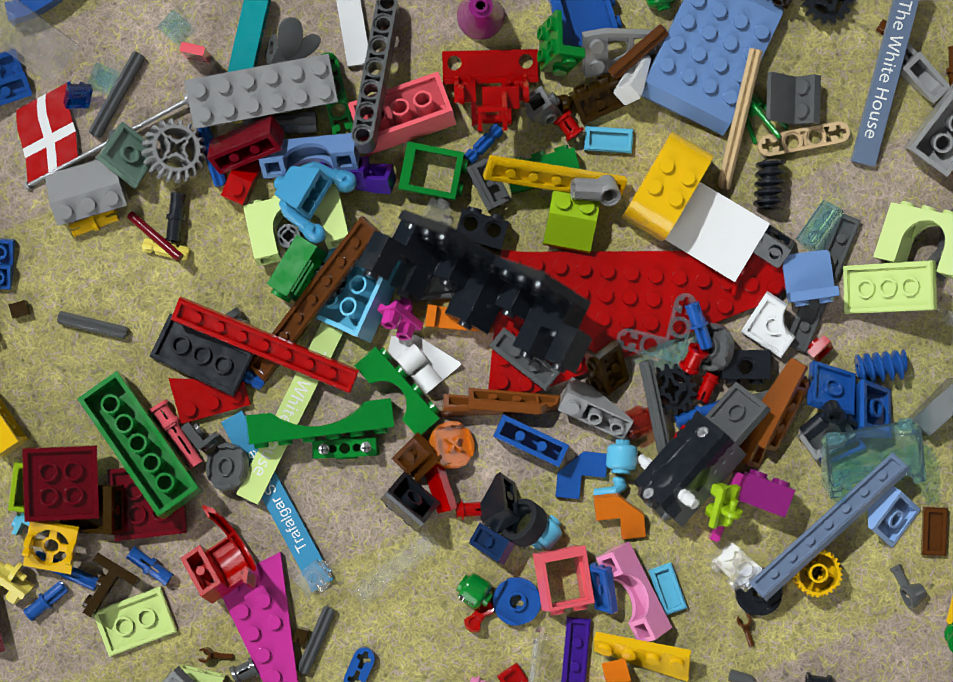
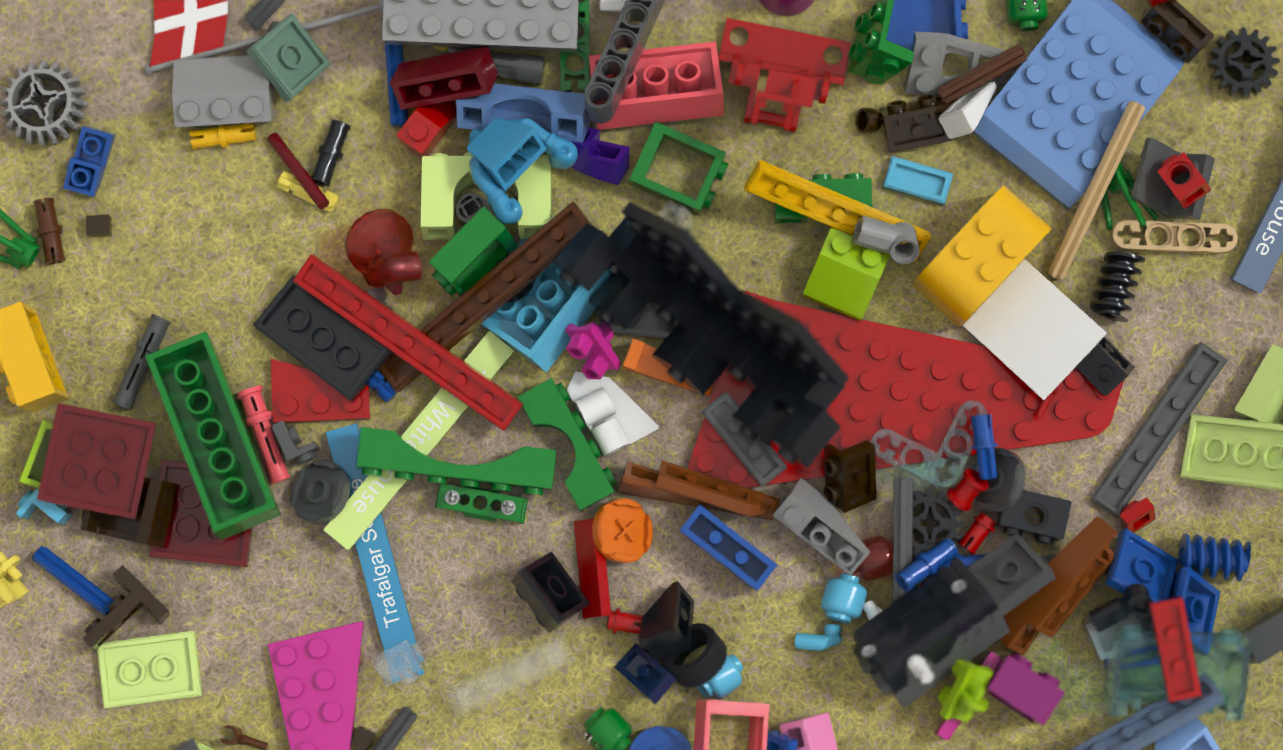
camera: 15 degrees right, 5 degrees down
(32, 560) = (32, 553): yellow piece -> none
(45, 600) = (38, 614): blue axle -> none
(69, 429) = (158, 328): none -> dark grey pin
(92, 325) = (188, 267): dark grey axle -> none
(136, 556) = (171, 583): blue pin -> none
(179, 158) = (340, 42): light grey gear -> none
(223, 565) = (283, 621): red piece -> none
(228, 281) = (381, 250): none -> clear red piece
(416, 457) = (572, 535): reddish brown plate -> none
(480, 234) = (730, 250): black brick -> none
(483, 143) = (754, 148): blue axle -> none
(491, 192) = (748, 210): dark grey hinge -> none
(543, 106) = (841, 117): dark grey brick -> none
(561, 122) = (870, 139): red bush -> none
(569, 477) = (769, 609): blue tile -> none
(615, 506) = (819, 661): orange tile -> none
(676, 420) = (926, 564): none -> blue pin
(768, 325) = (1075, 469): white tile -> none
(809, 278) = (1143, 418): medium blue bracket -> none
(810, 102) = (1189, 191): none -> red brick
(820, 225) = (1172, 353): clear light blue plate -> none
(867, 441) = (1175, 649): none -> red tile

